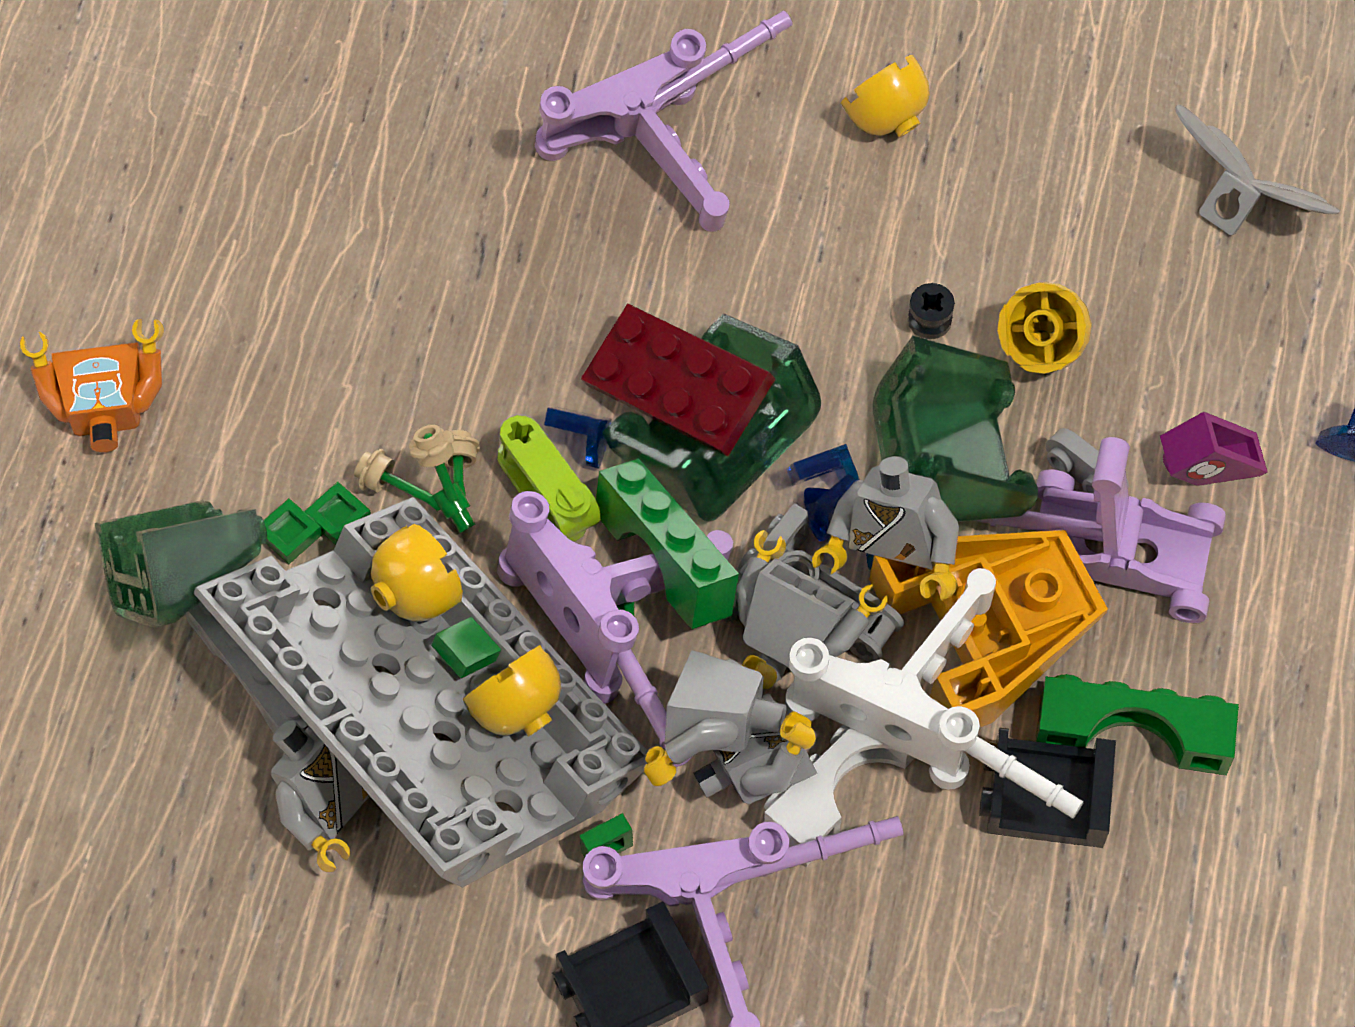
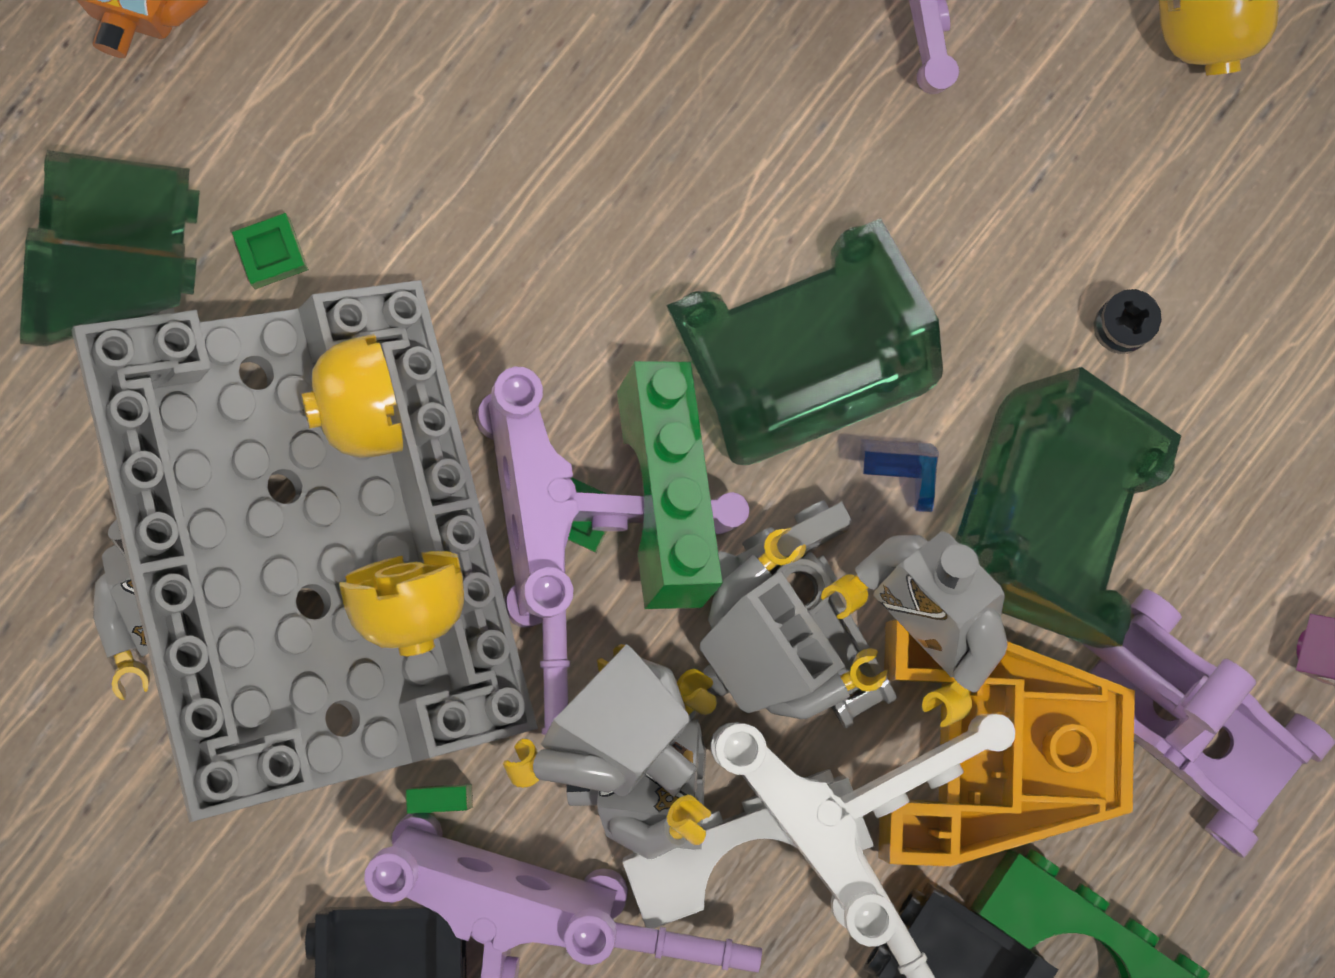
camera: 25 degrees right, 20 degrees up
(336, 509) = (333, 256): green tile -> none
(432, 449) = (451, 251): plant -> none
(466, 647) = (386, 503): green tile -> none
(538, 467) = (578, 331): lime piece -> none
(584, 424) = (652, 278): clear blue tile -> none
(678, 379) = (786, 280): dark red plate -> none
(822, 504) = (883, 513): clear blue tile -> none
(1044, 327) = (1247, 417): yellow cylinder -> none
(1073, 456) = (1212, 626): light grey plate -> none

